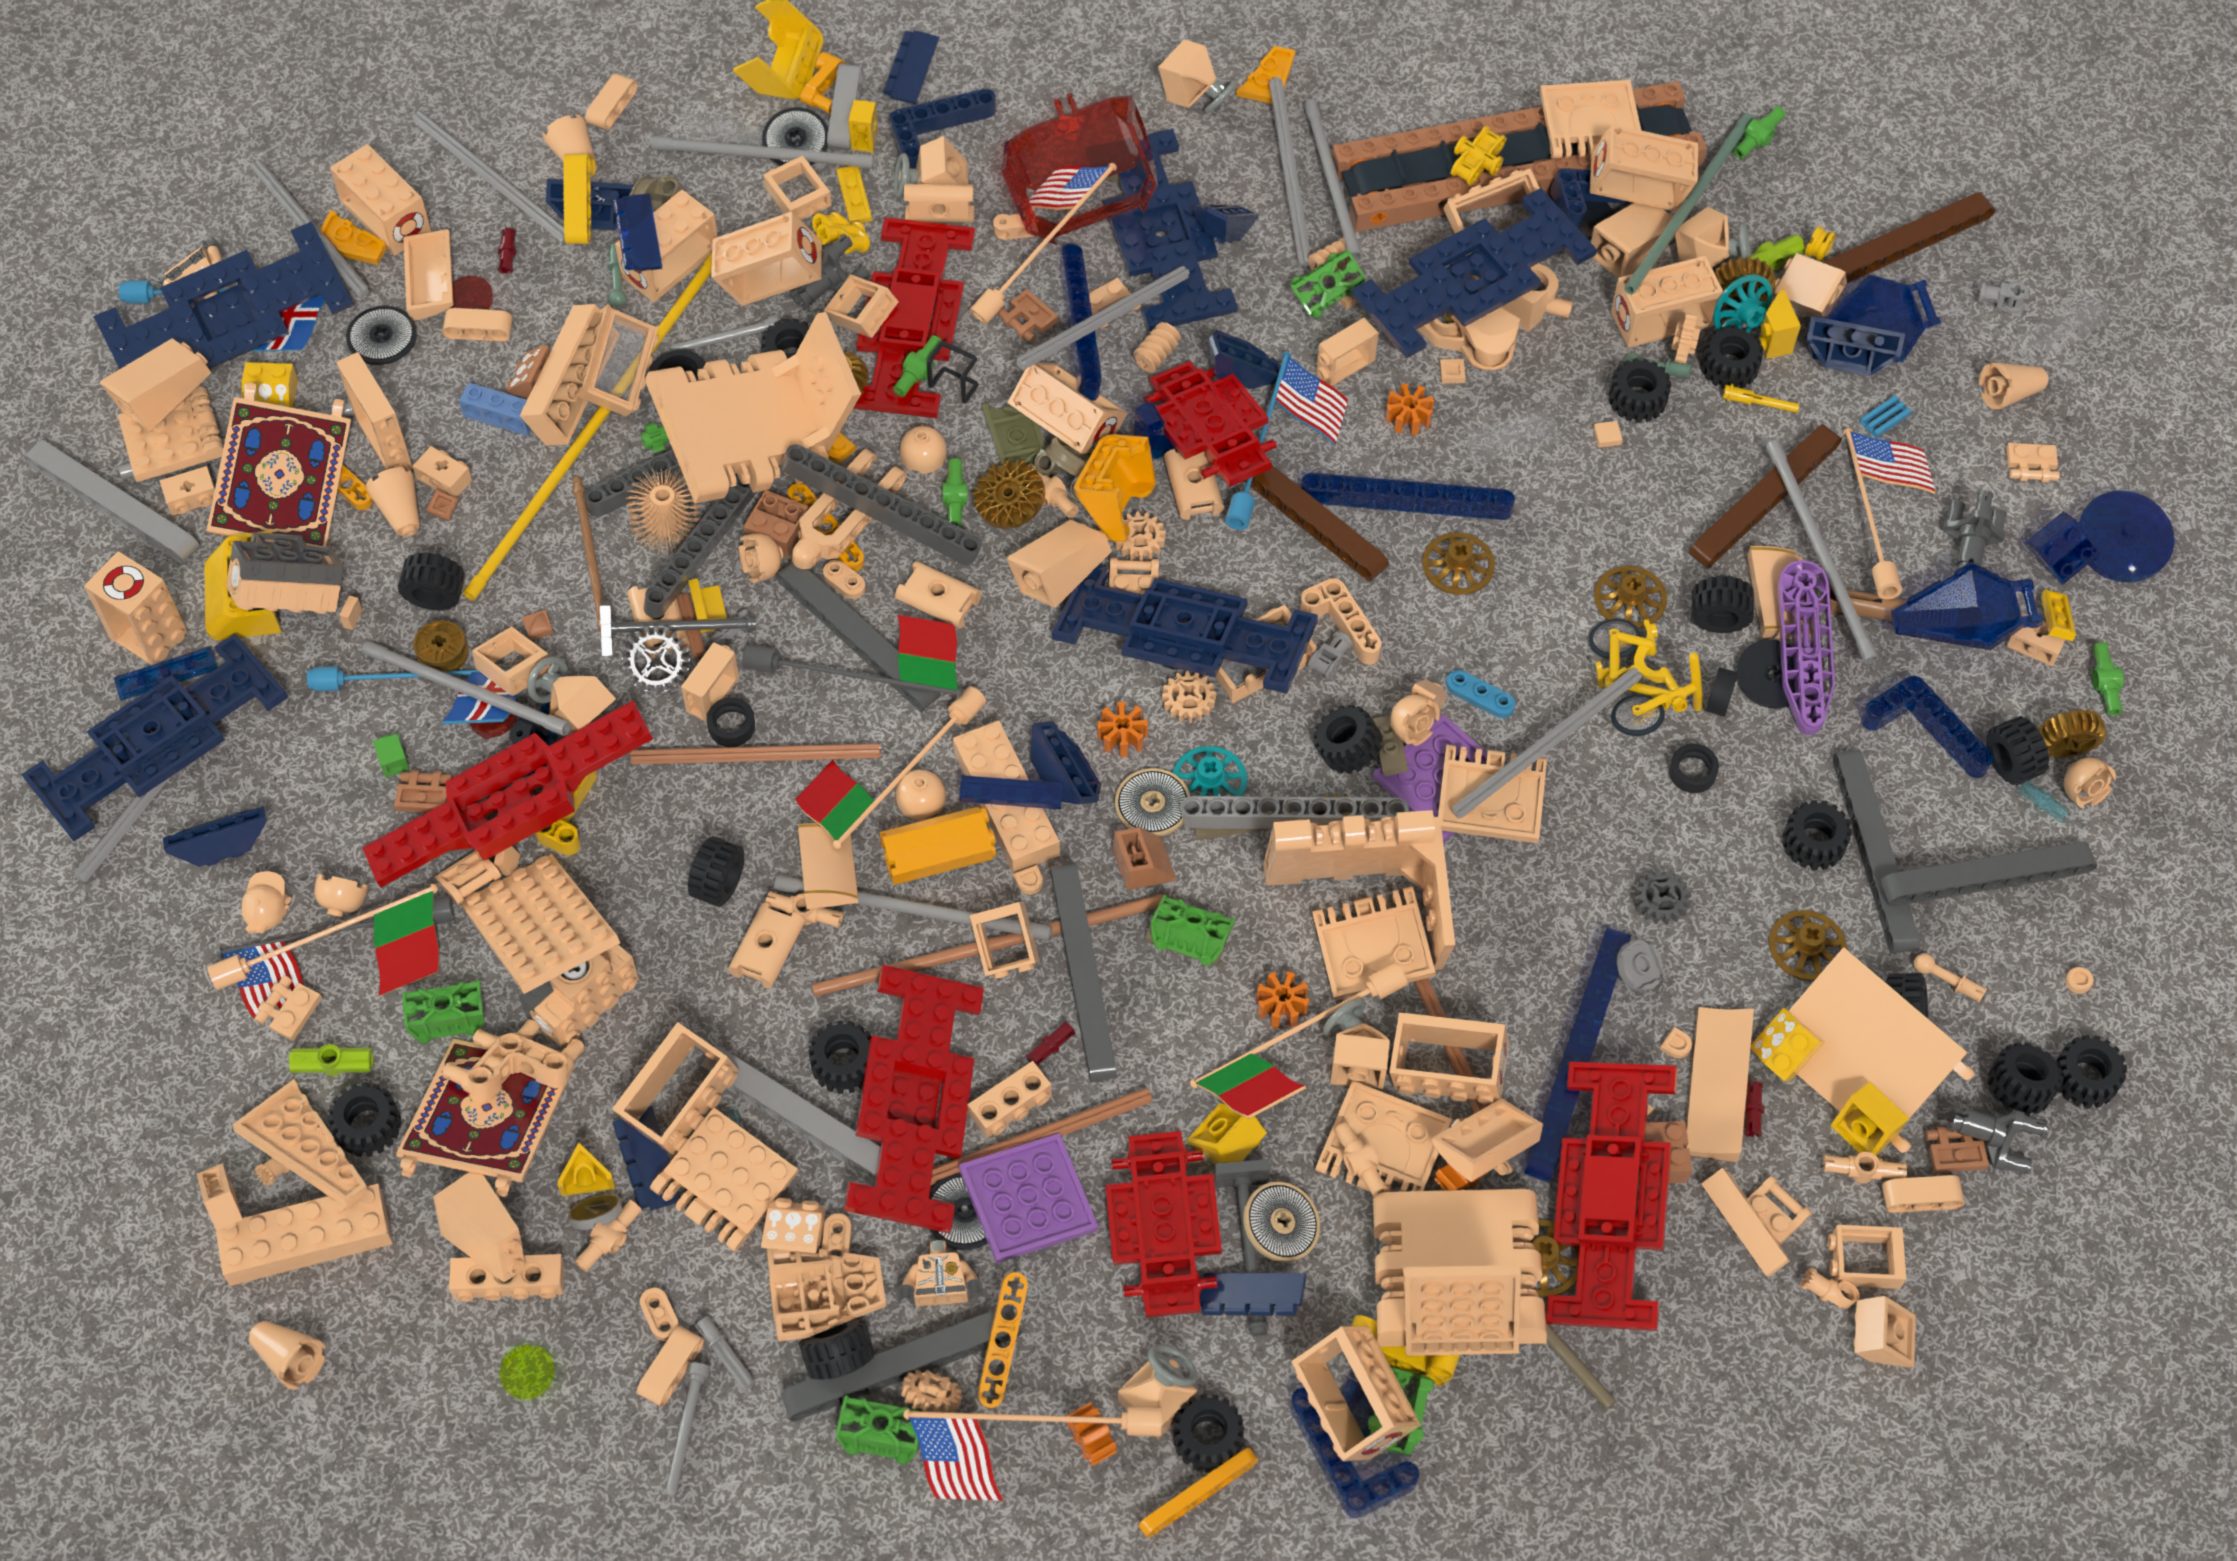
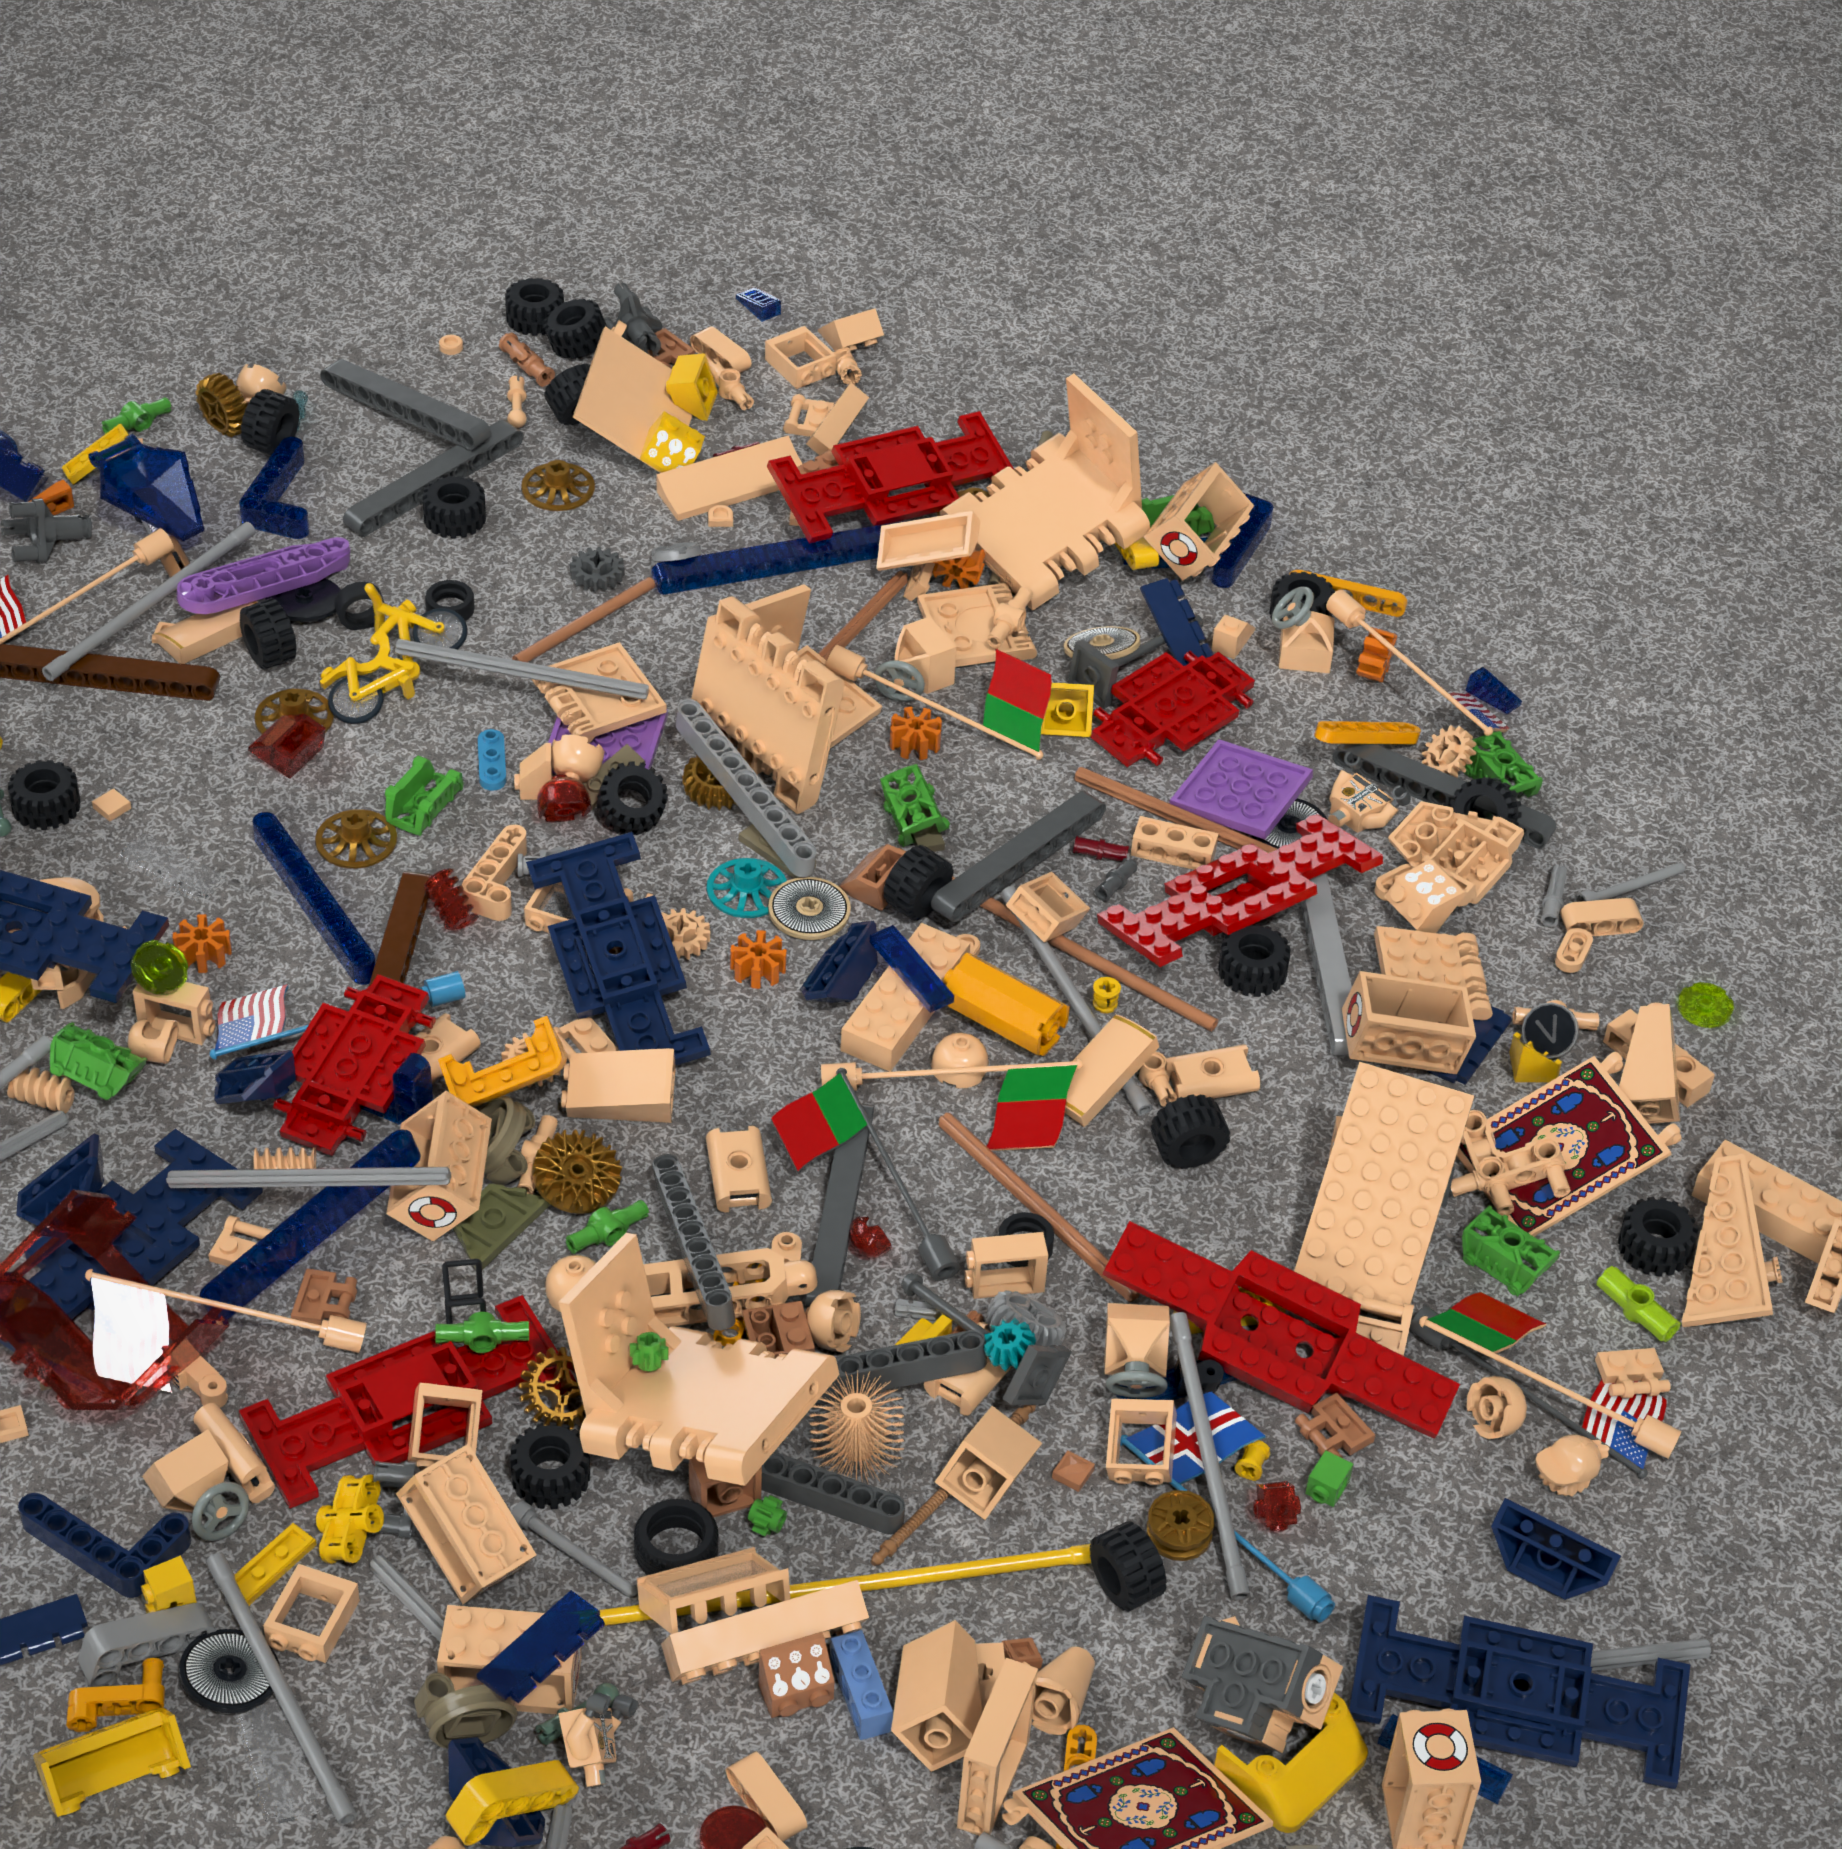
camera: 130 degrees left, 15 degrees down
(399, 705) = (1276, 1505): none -> clear red brick
(447, 428) = (938, 1696): none -> light nougat slope
(448, 731) = (1252, 1460): none -> yellow bush
(576, 569) = (988, 1462): none -> light nougat slope
(586, 258) = (590, 1734): none -> light nougat torso
(632, 614) = (1008, 1343): none -> teal gear
(798, 407) = (649, 1351): none -> bright green gear
(810, 628) = (868, 1240): none -> clear red hair
(901, 927) = (1109, 994): none -> yellow bush
(1004, 1510) = (1492, 691): none -> clear blue slope
(1010, 1031) = (1116, 879): none -> dark grey pin
(1101, 867) = (916, 880): none -> black tyre
(1218, 1347) = (1231, 636): none -> light nougat slope
(1327, 327) = (153, 1043): none -> light nougat helmet
(1329, 567) = (448, 901): none -> clear red piece
(1363, 328) = (159, 967): none -> clear neon green tile
(1380, 691) = (562, 799): none -> clear red cylinder
(1449, 1033) = (845, 587): light nougat hose -> none
(1473, 612) = (411, 791): none -> bright green piece
(1587, 561) = (289, 743): none -> clear red slope
(1604, 853) = (585, 620): none -> nougat piece
(1981, 1294) = (760, 303): none -> clear blue slope
(2008, 1022) = (526, 359): none -> nougat piece
(2016, 560) = (57, 497): none -> orange slope

